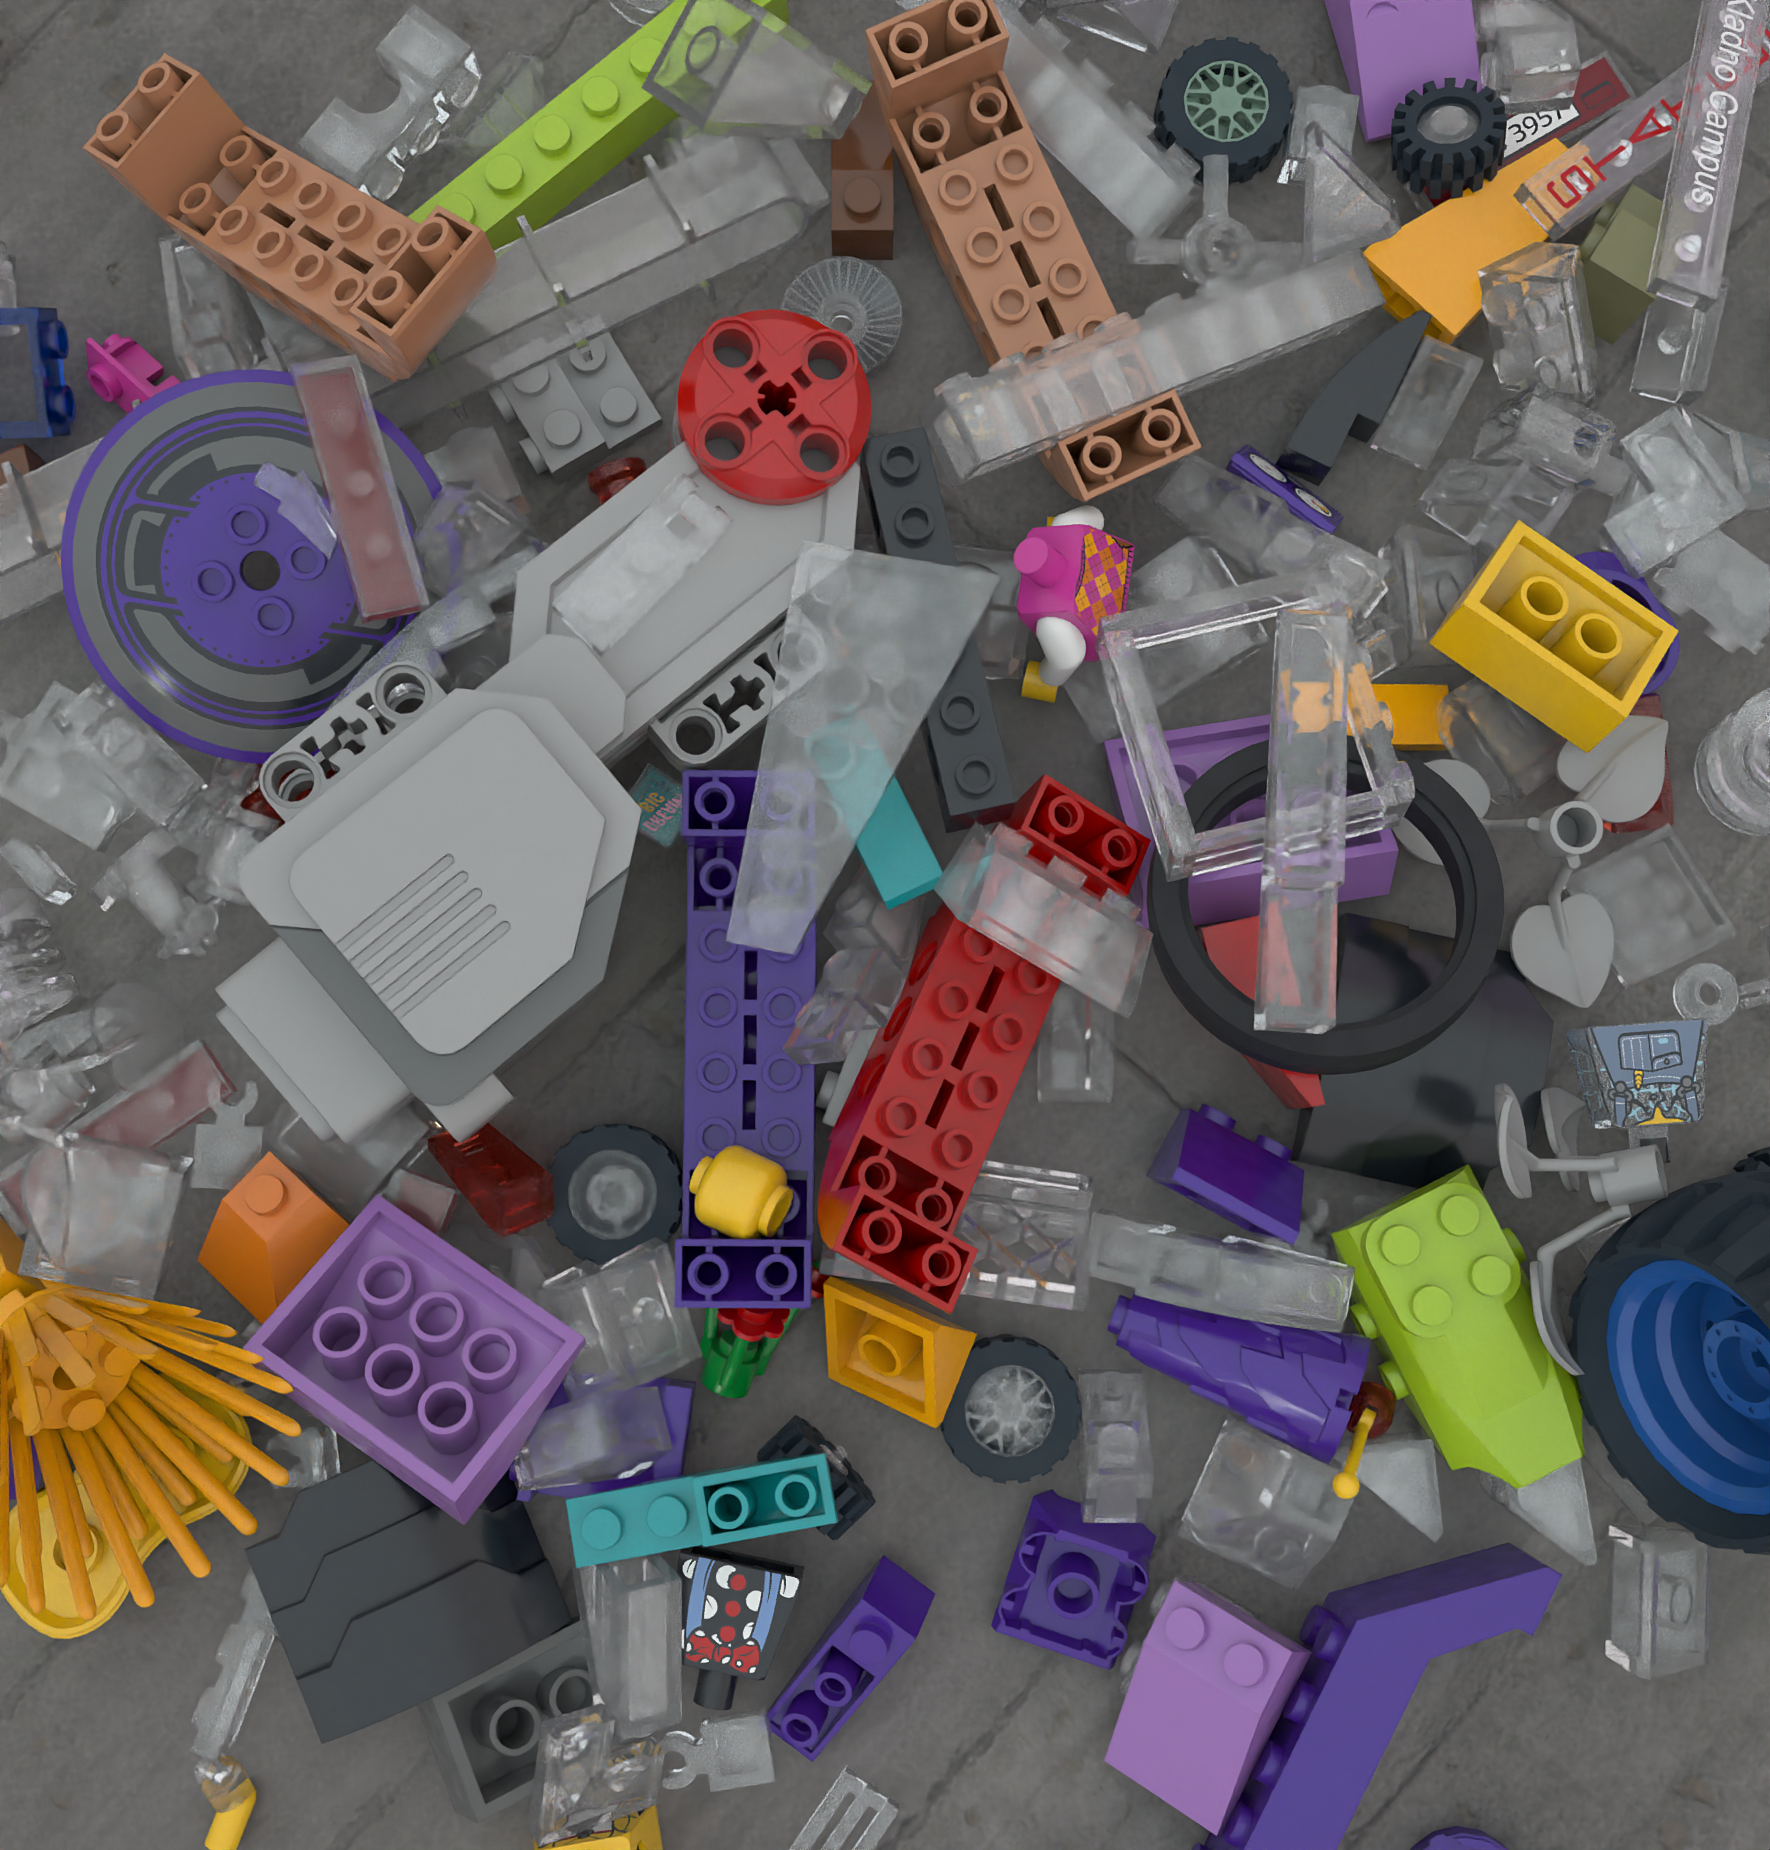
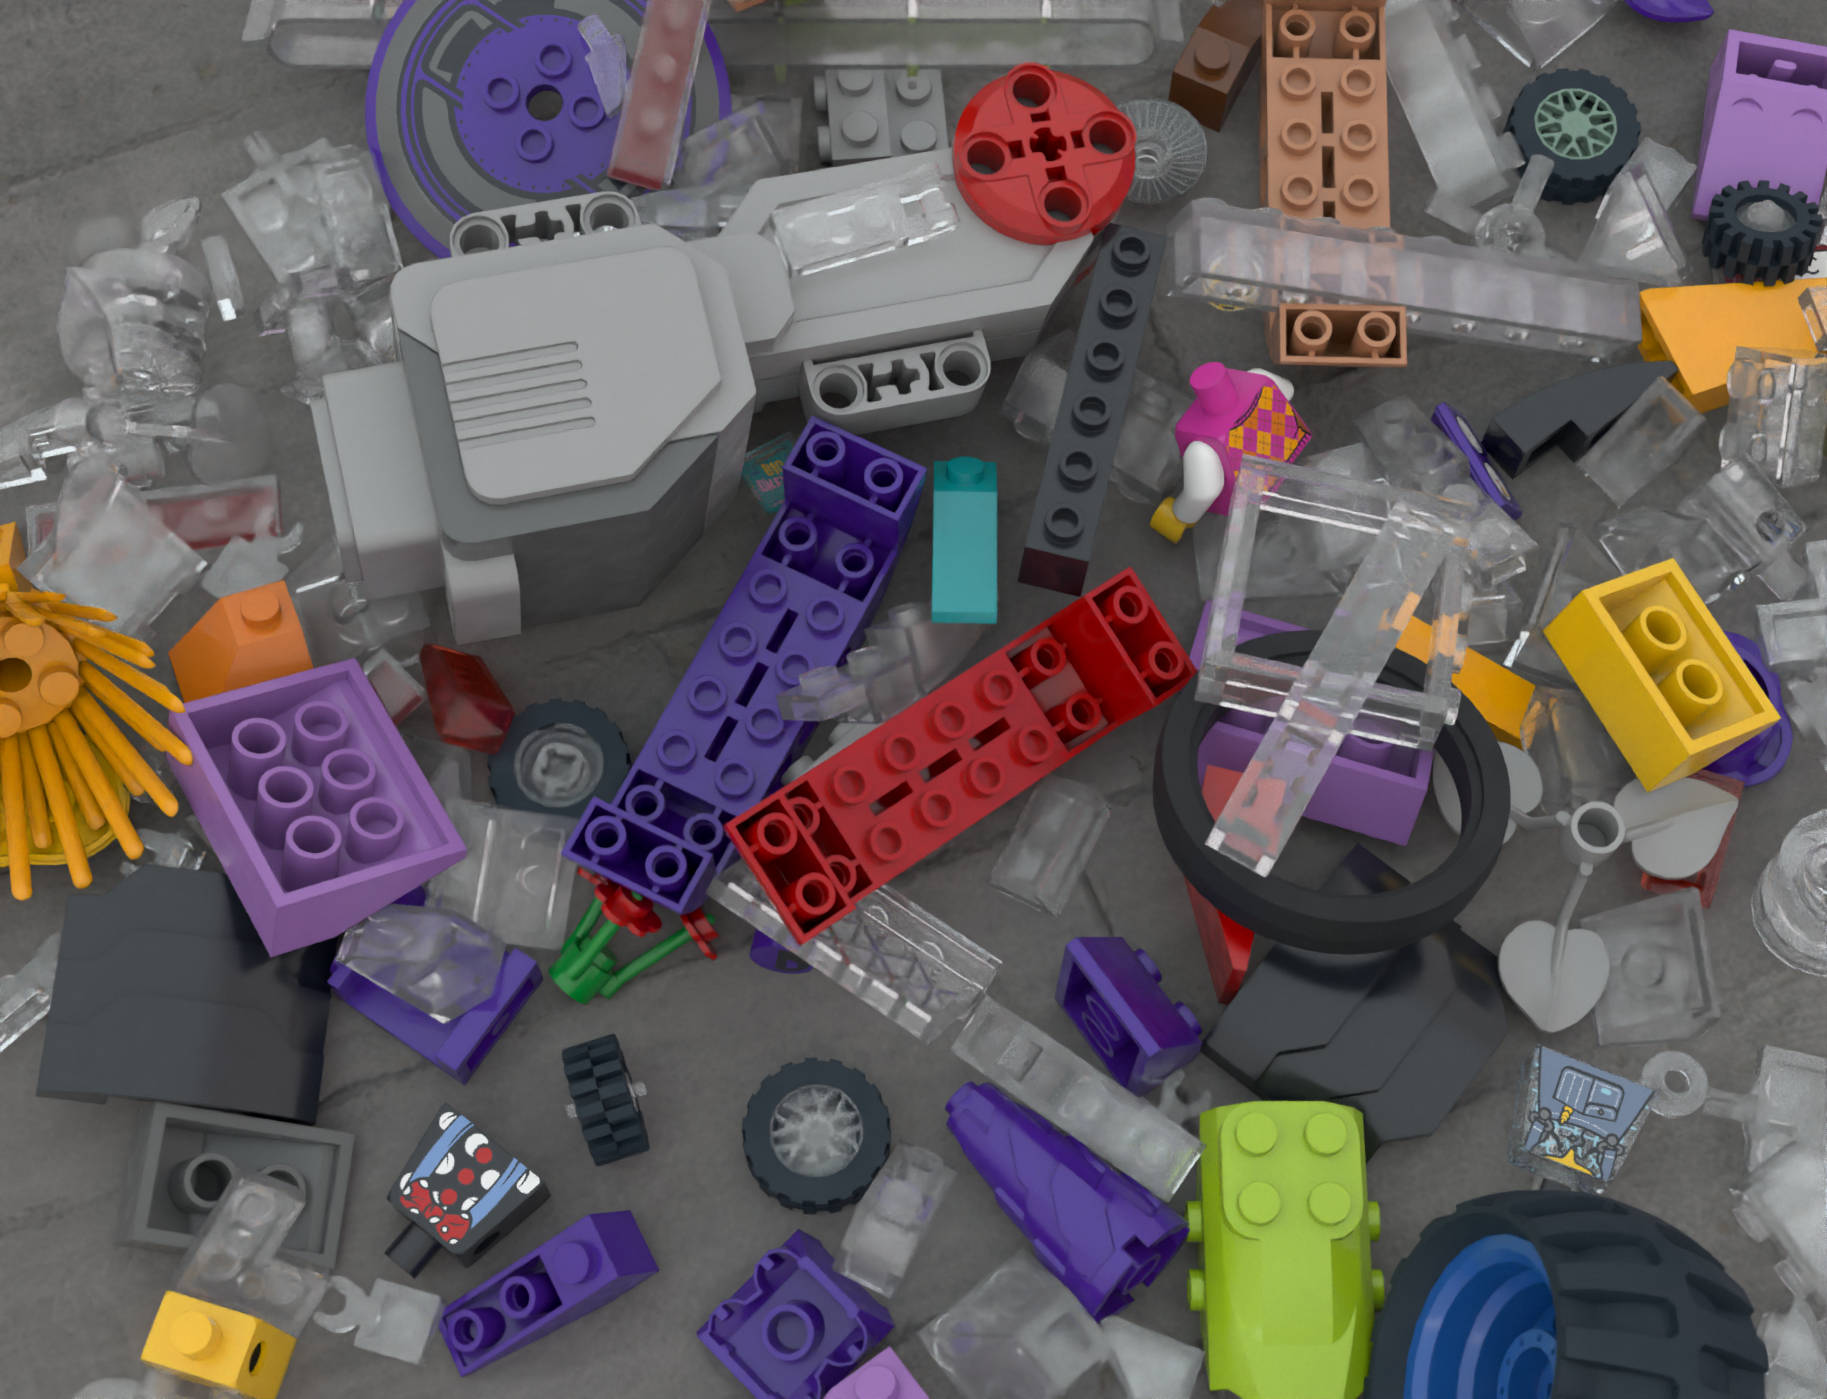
camera: 30 degrees right, 15 degrees down
(633, 1640) = (362, 1153): clear slope -> none
(702, 1509) = (487, 1057): teal slope -> none
(741, 1193) = (673, 793): yellow head -> none
(851, 688) = (988, 405): clear wing -> none
(893, 1350) = (738, 1018): light orange slope -> none
(1048, 915) = (1073, 677): clear slope -> none
(1365, 1426) = (1144, 1311): hinge -> none
(1614, 1177) = (1478, 1159): light grey plant -> none

